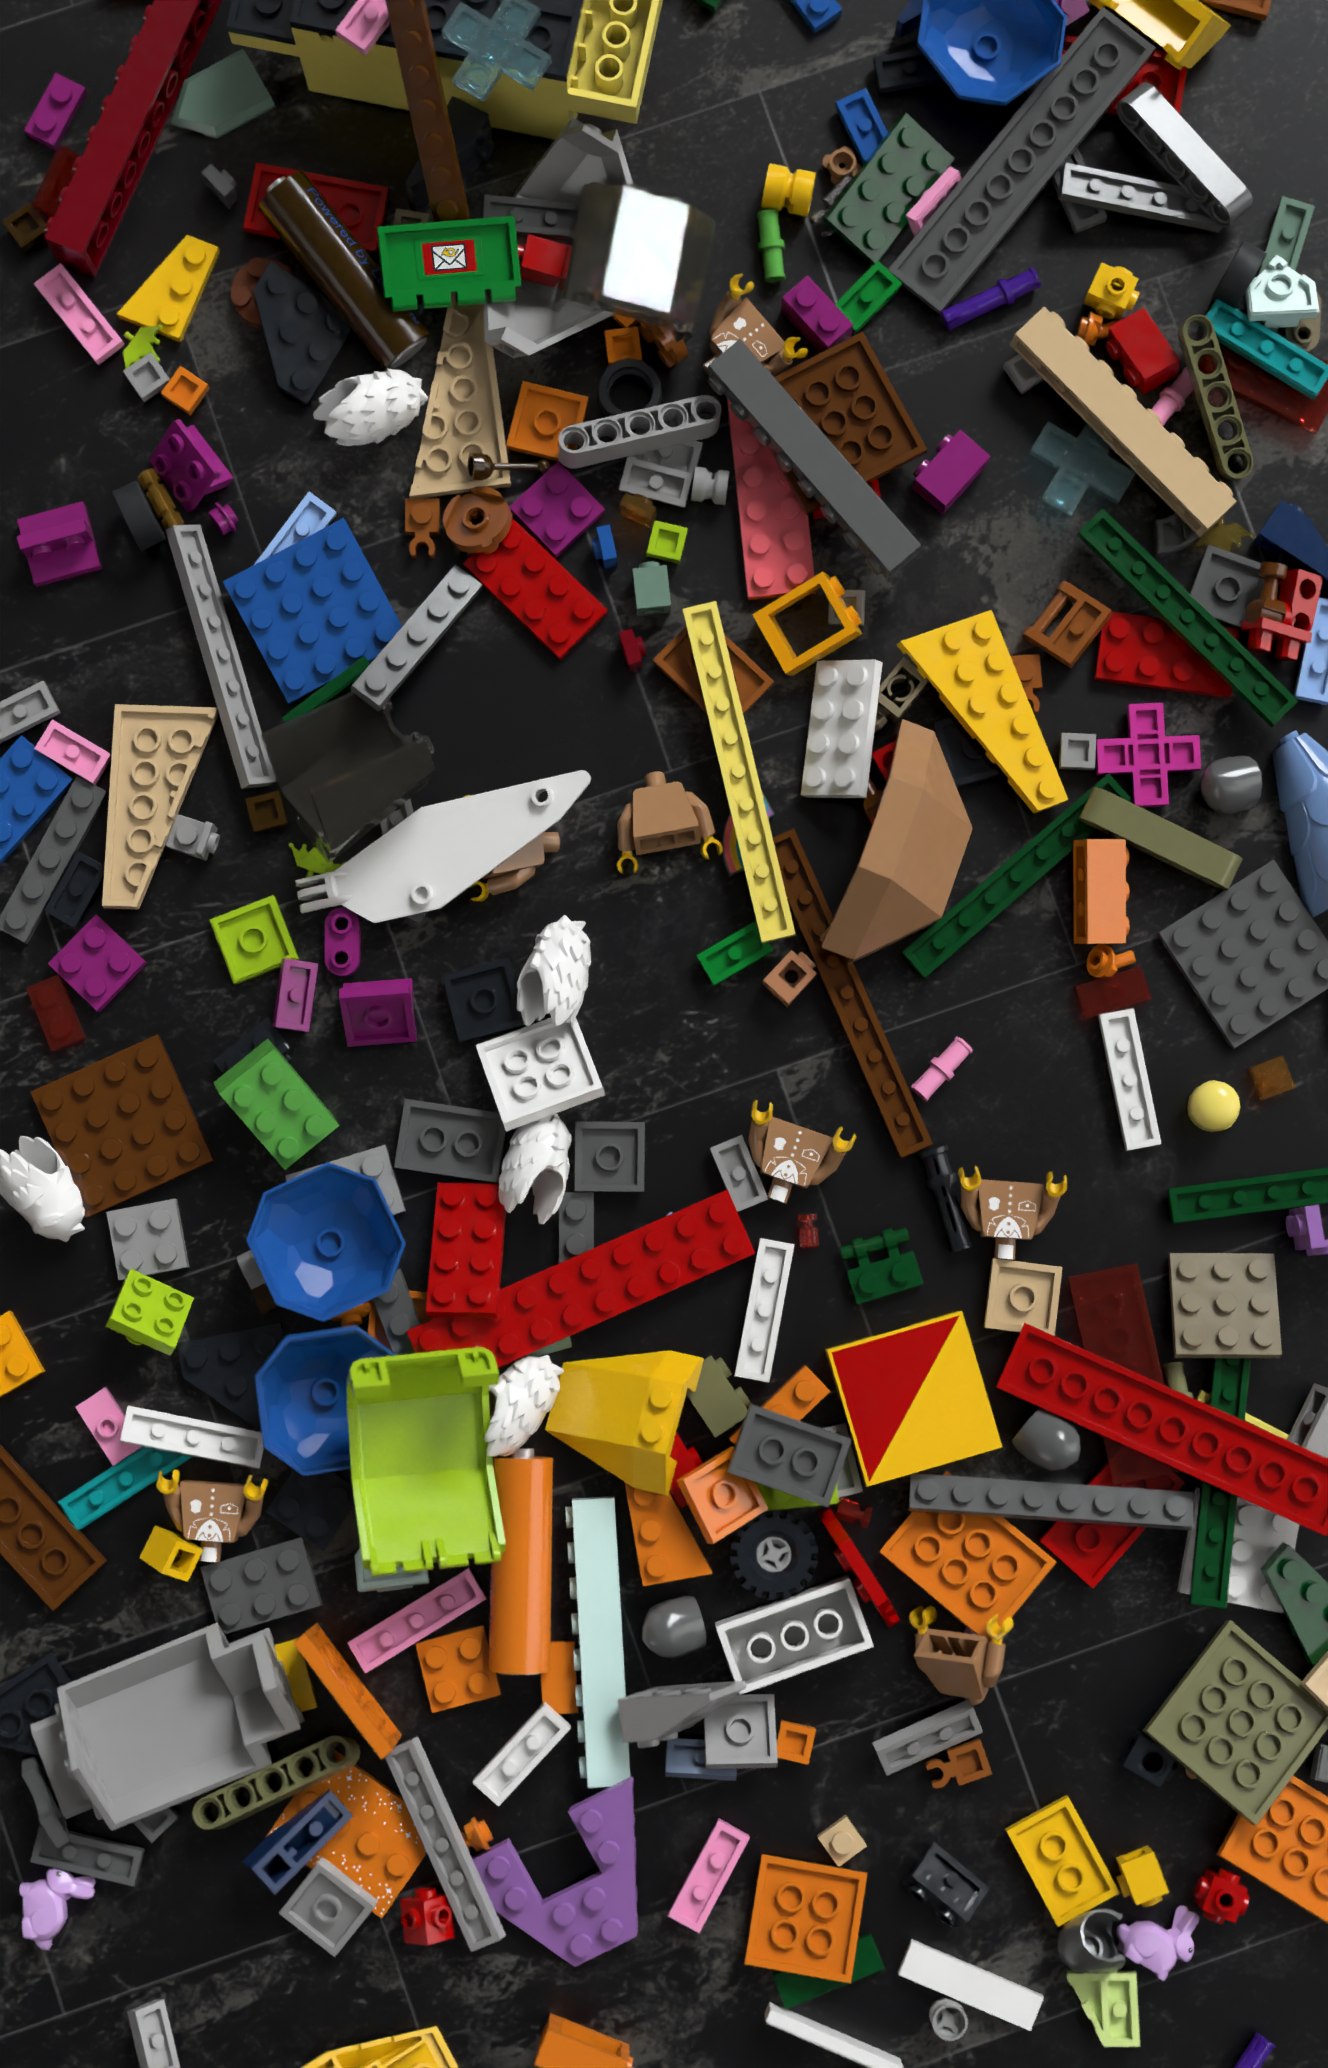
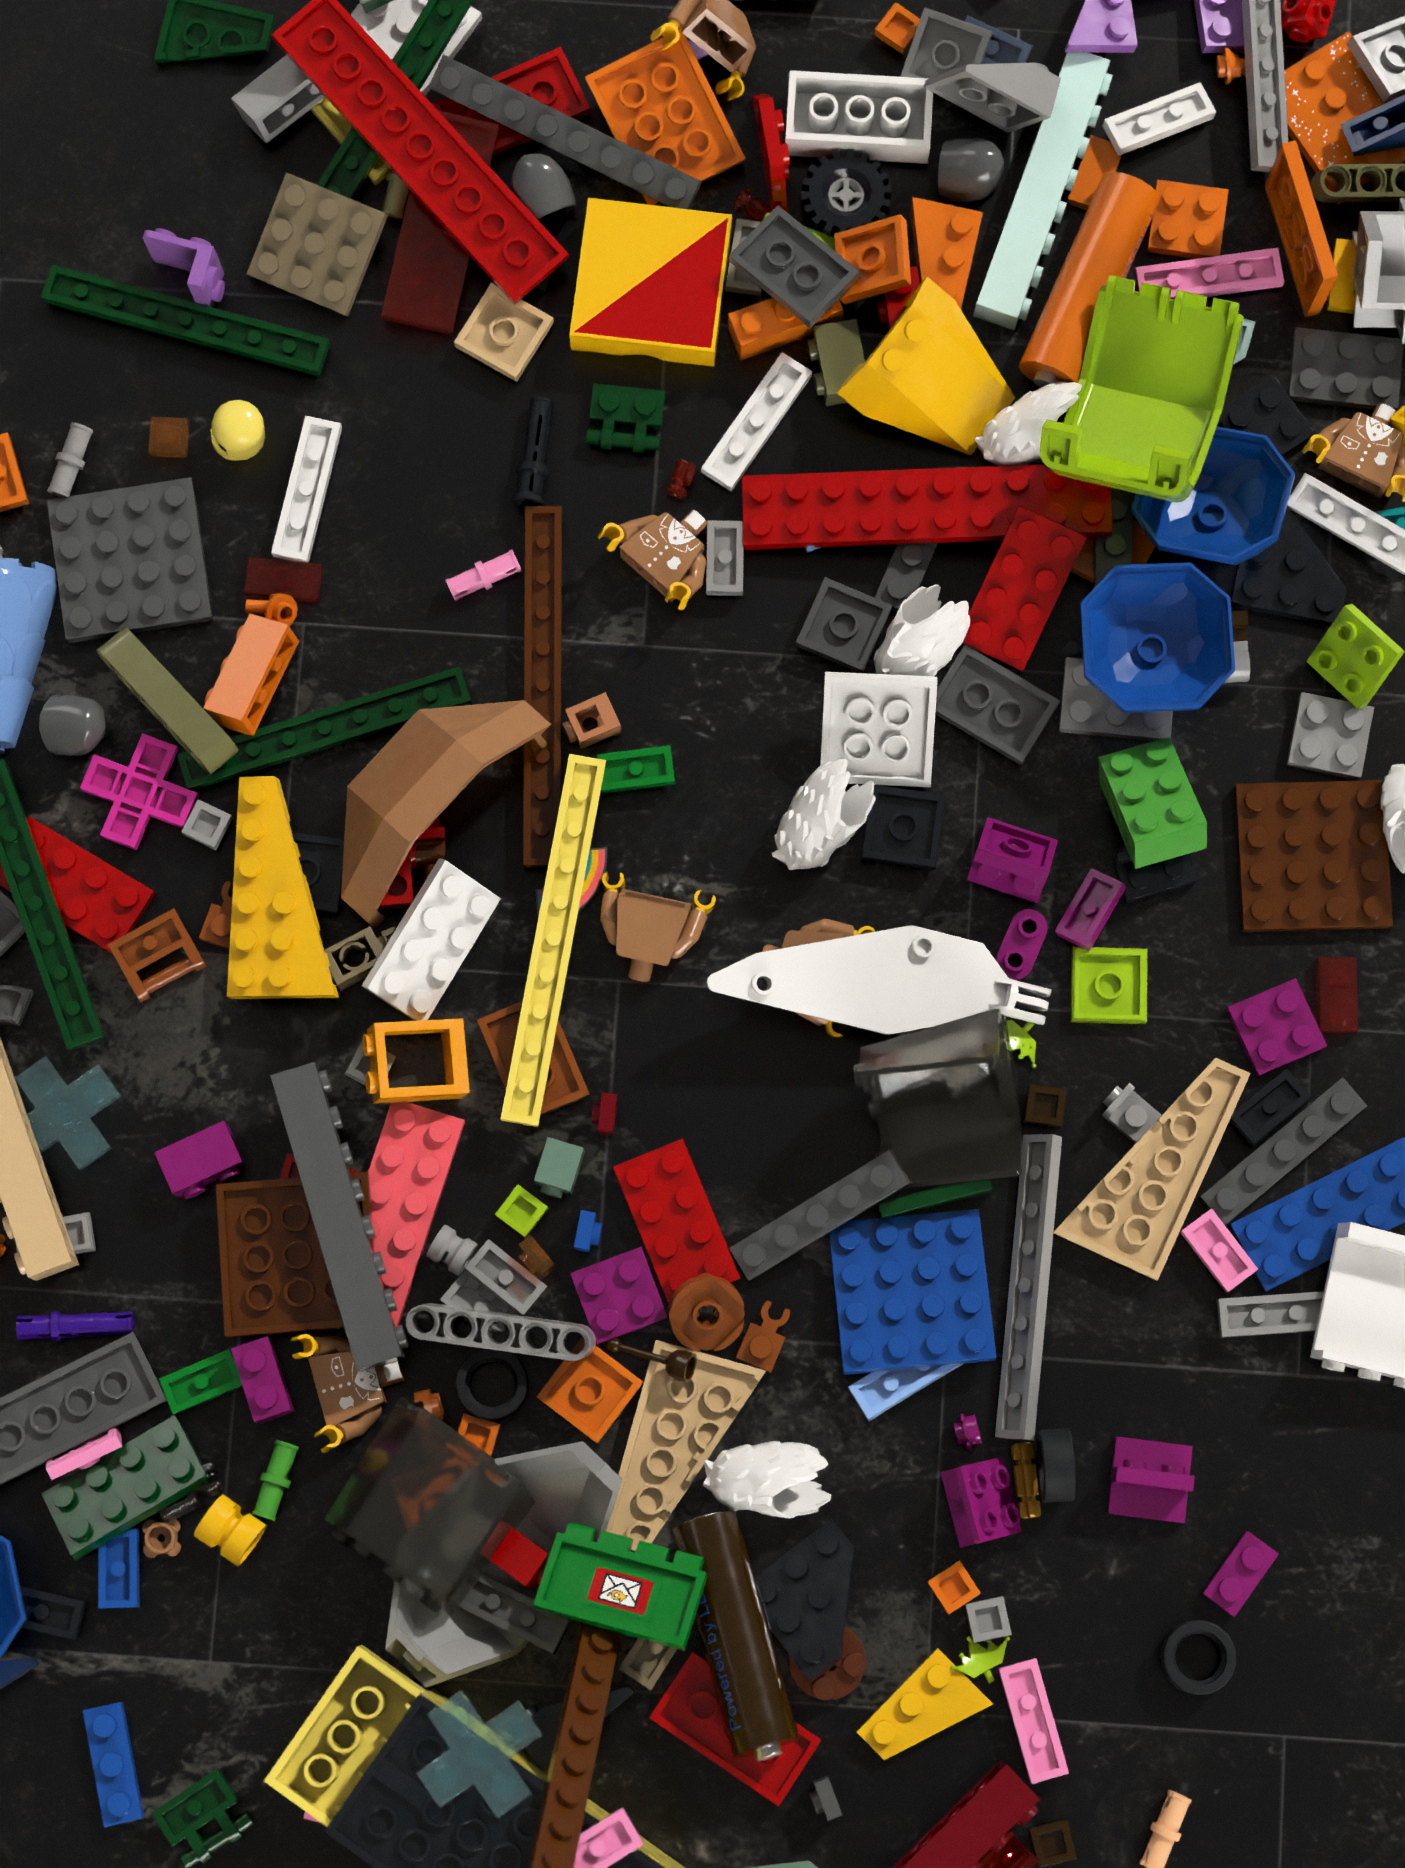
camera: 155 degrees left, 5 degrees down
(1008, 1209) = (479, 415): medium nougat torso -> none

